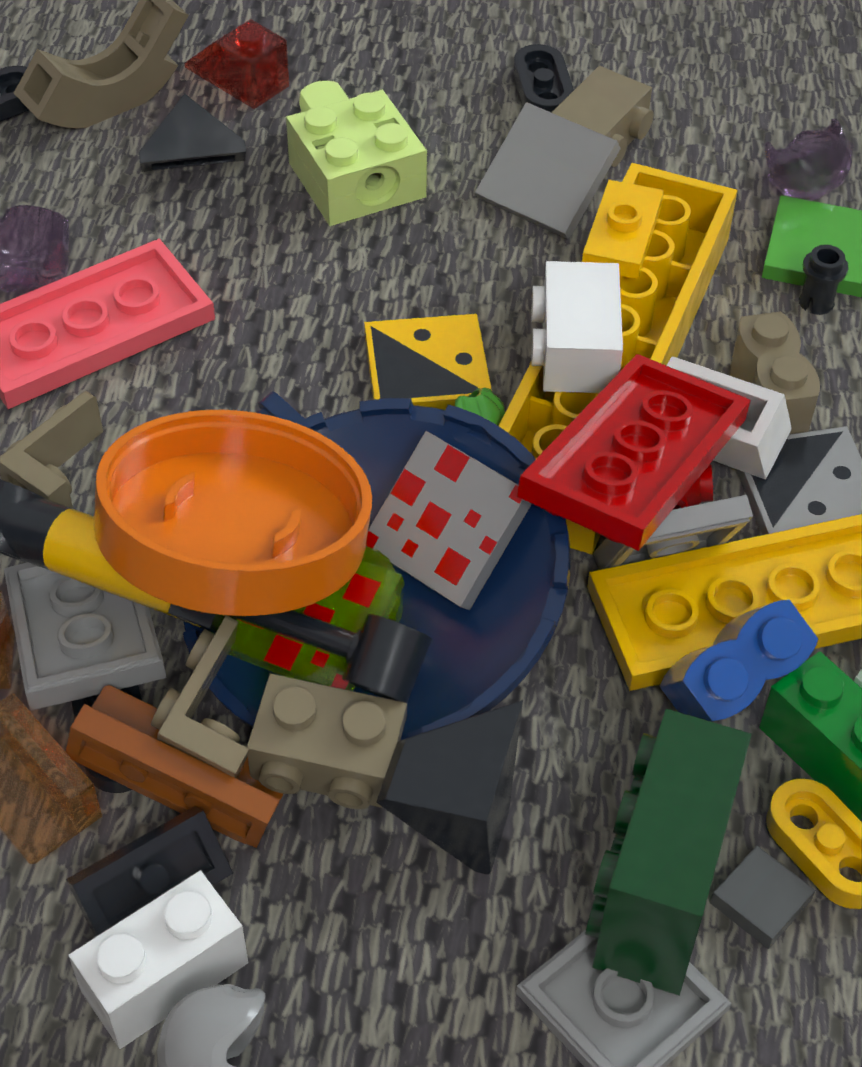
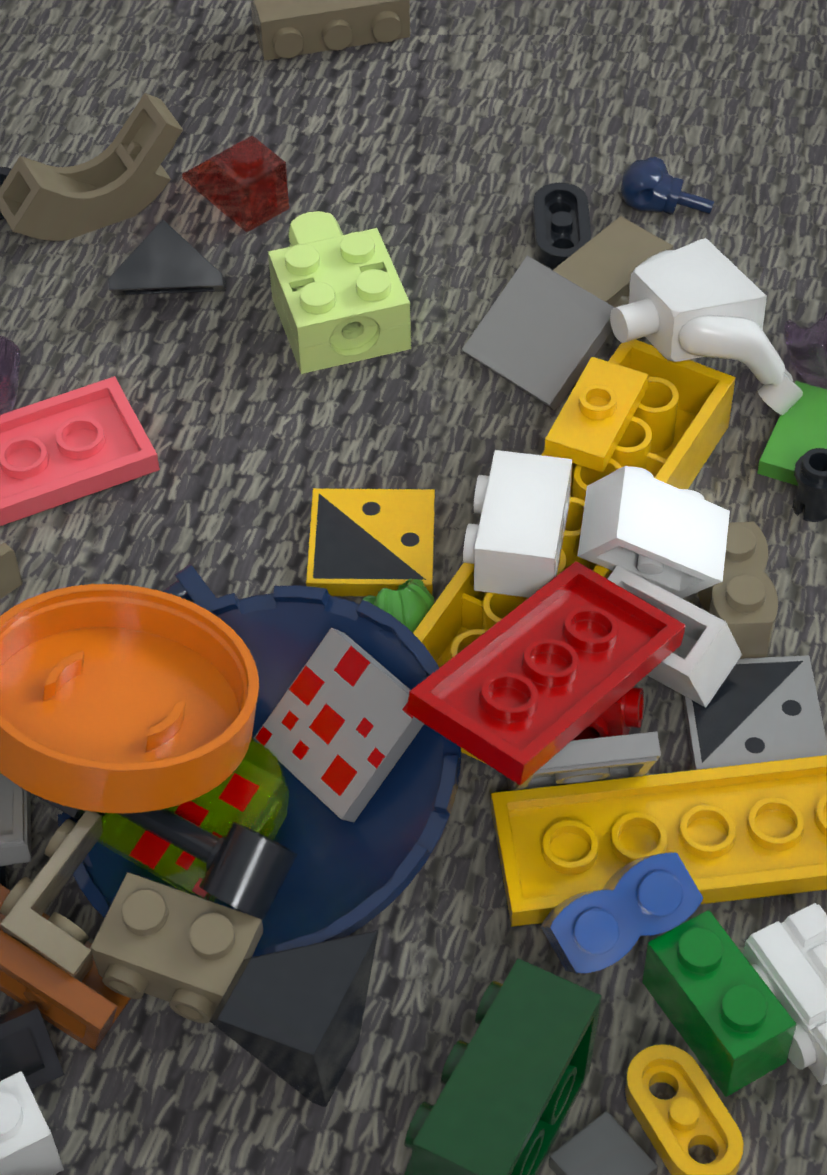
camera: 10 degrees right, 0 degrees up
(616, 46) = (651, 189): none -> dark blue piece
(699, 322) = (654, 531): none -> white brick
(701, 130) = (703, 306): none -> white torso

